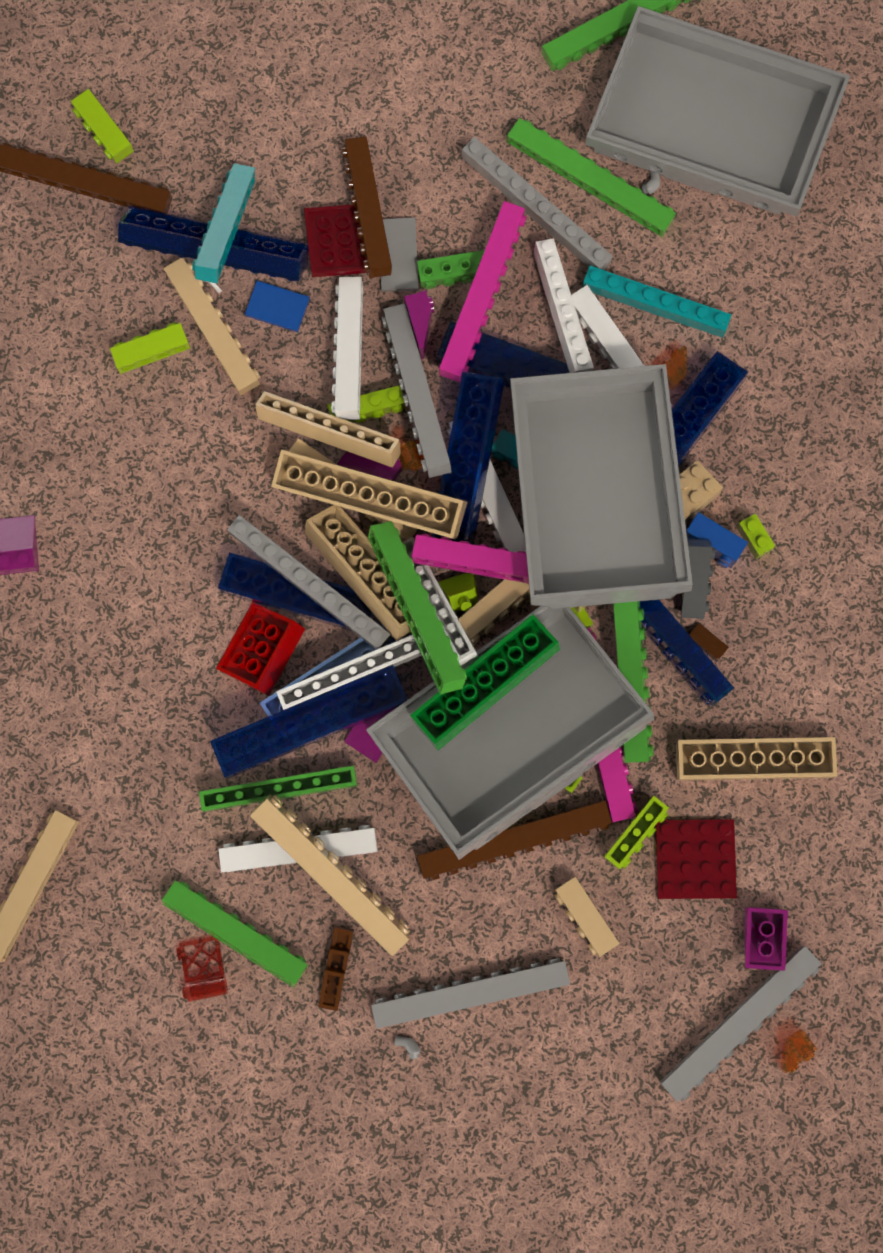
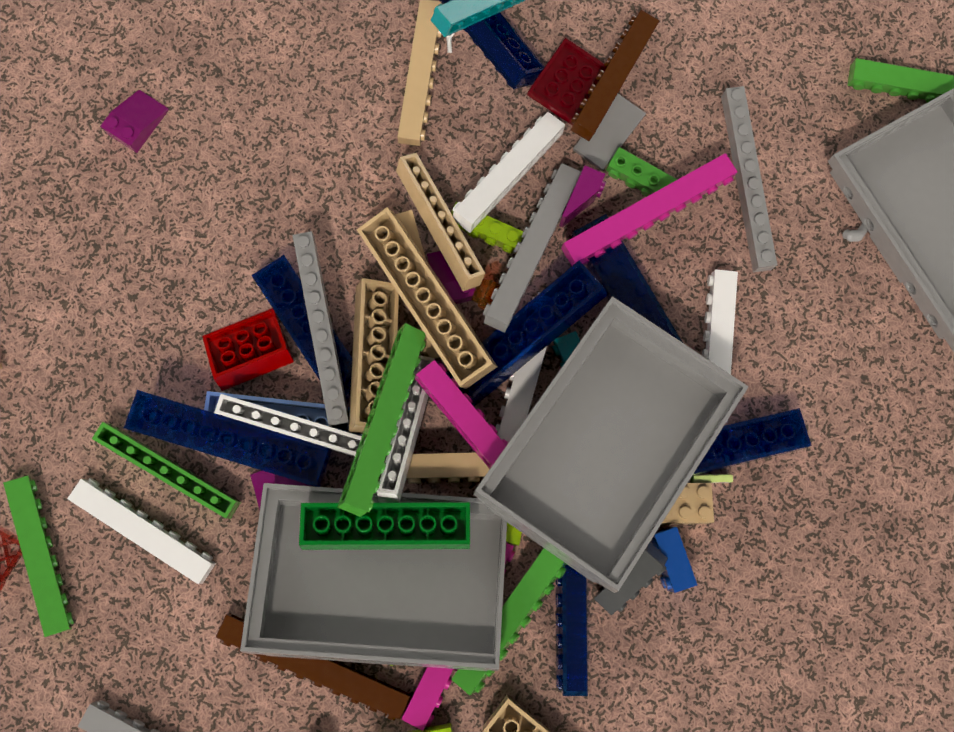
camera: 30 degrees right, 0 degrees up
(150, 348) = (359, 51): lime brick -> none
(277, 306) = (483, 97): blue tile -> none
(331, 874) = (143, 574): tan brick -> none
(336, 968) = (92, 649): reddish brown slope -> none
(461, 591) = (435, 433): lime torso -> none
(562, 307) = (702, 274): white brick -> none
(591, 177) = (811, 191): bright green brick -> none
(657, 301) = (783, 330): teal brick -> none
(676, 367) = (756, 394): clear orange slope -> none
(698, 455) = (719, 478): none -> yellowish green tile
(708, 642) = (599, 635): reddish brown slope -> none
(756, 536) = (708, 582): lime brick -> none

